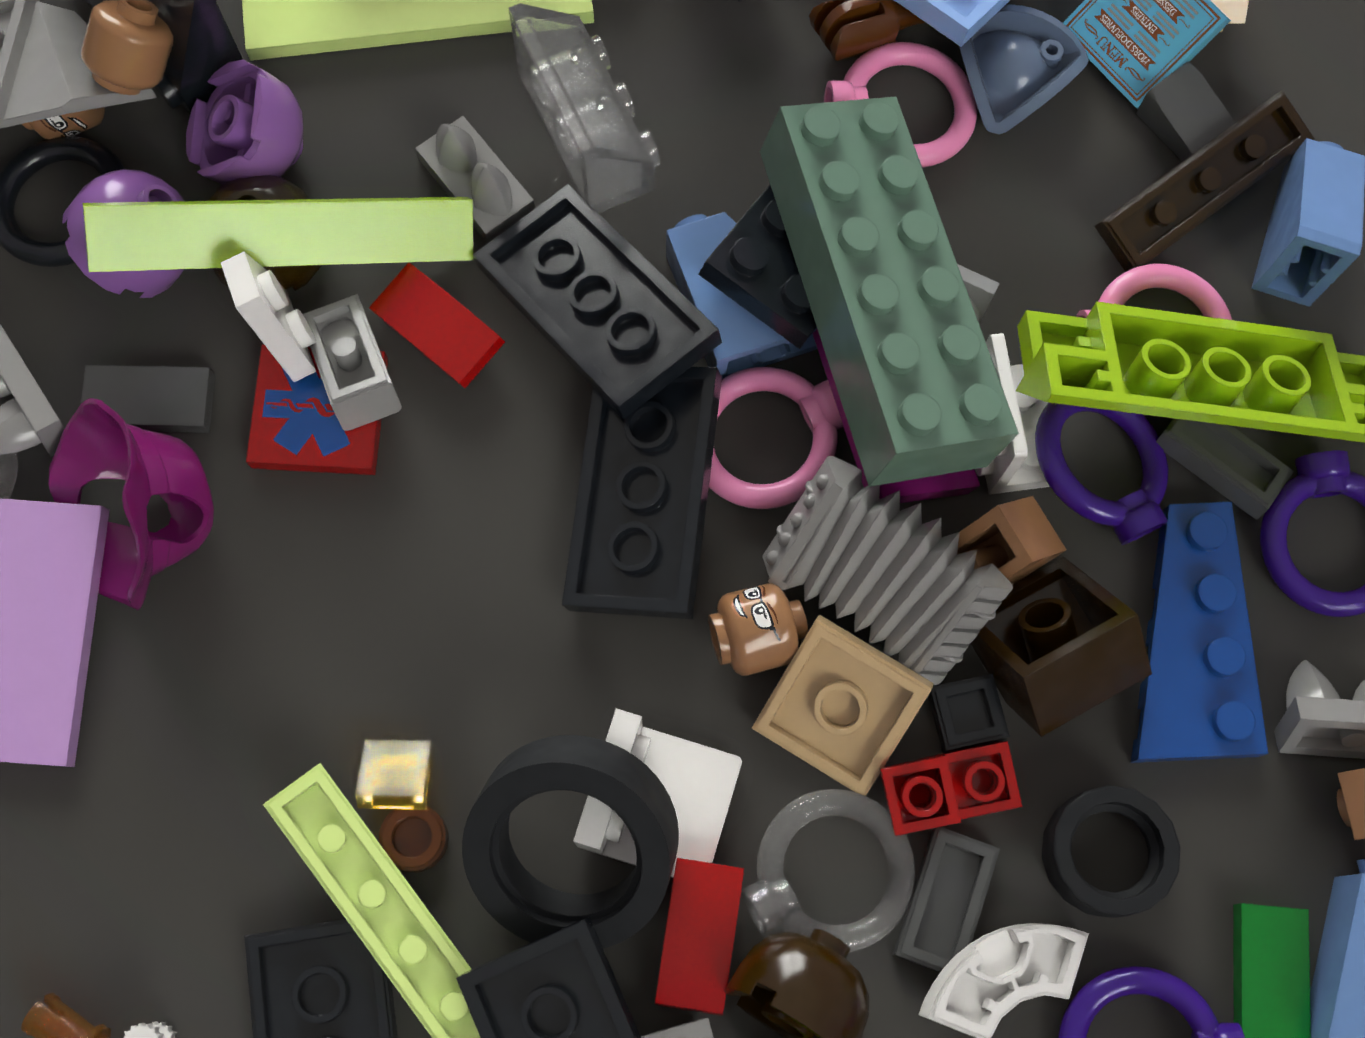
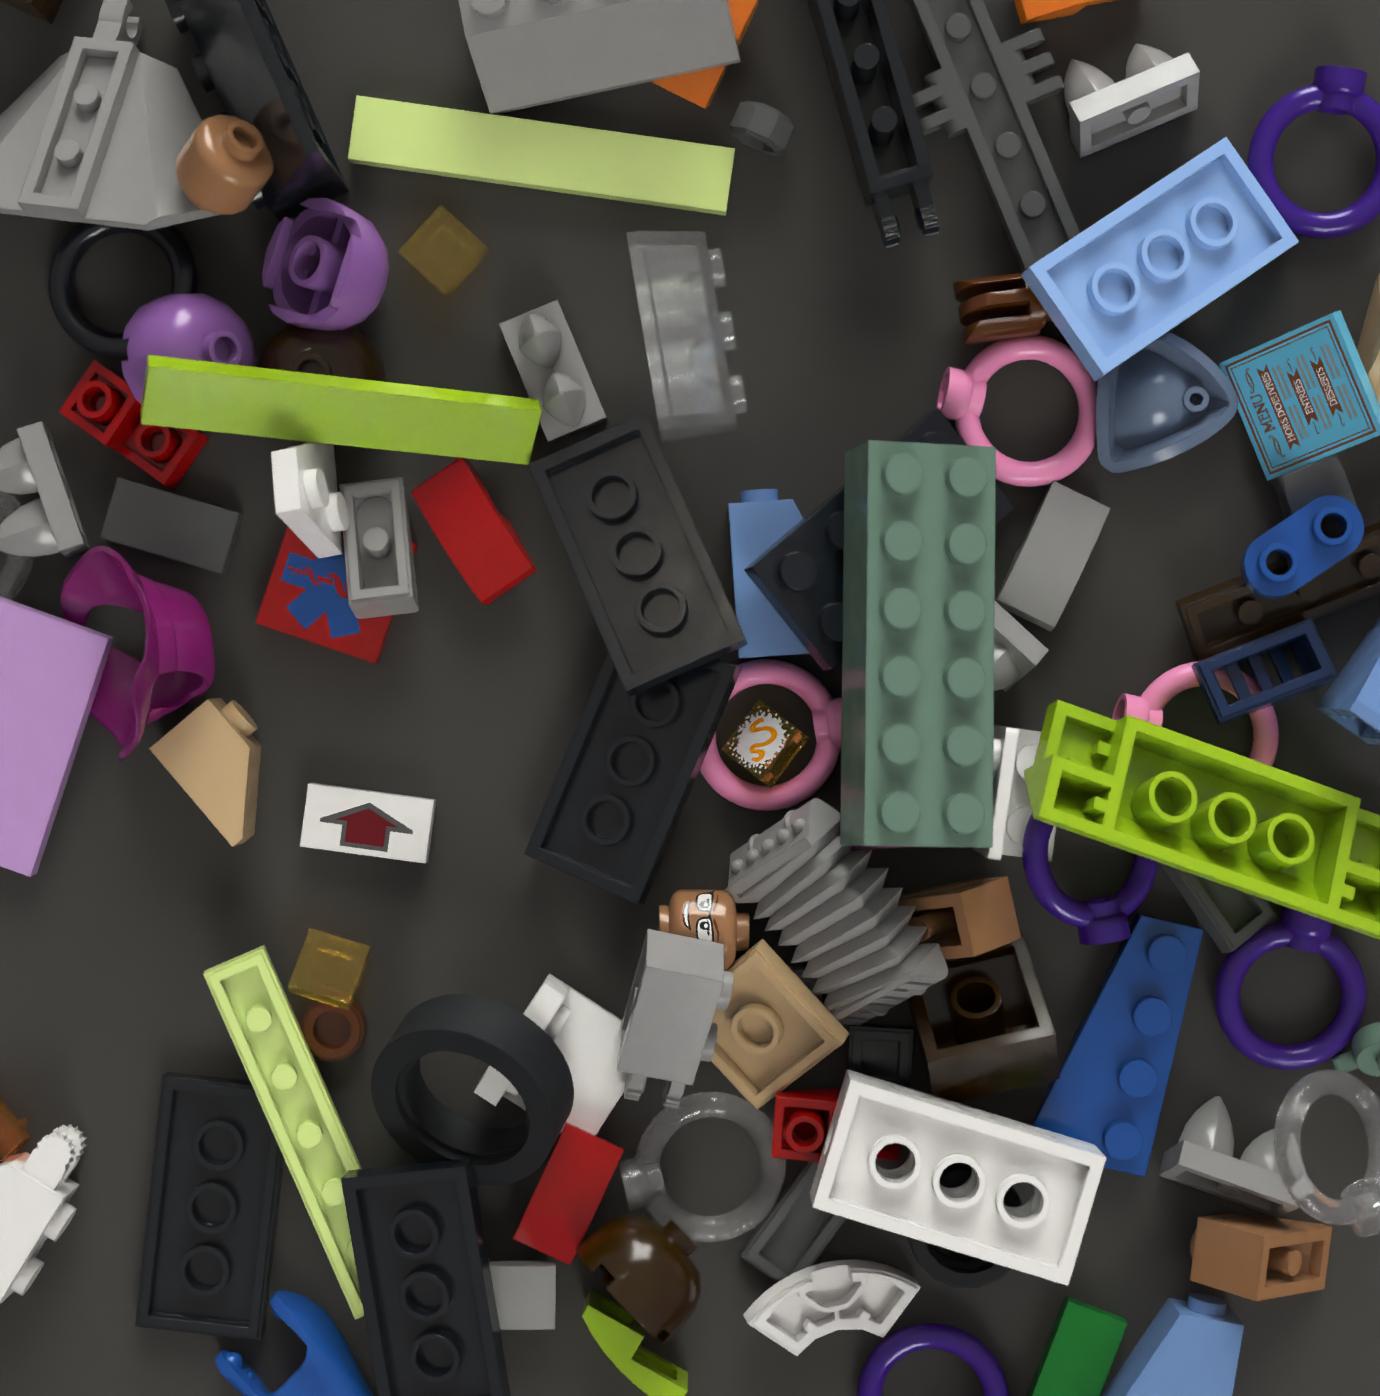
camera: 20 degrees right, 15 degrees up
(92, 320) = (111, 414): none -> red slope
(235, 599) = (217, 765): none -> tan slope
(350, 105) = (443, 251): none -> clear yellow tile
(399, 622) = (368, 823): none -> white tile
(753, 709) = (671, 1013): none -> light grey hinge
(764, 441) = (765, 743): none -> tile
(975, 210) = (1052, 556): none -> light grey slope
(1121, 745) = (967, 1219): none -> white brick
(1193, 135) = (1303, 546): none -> blue plate
(1218, 224) = (1307, 651): none -> dark blue slope

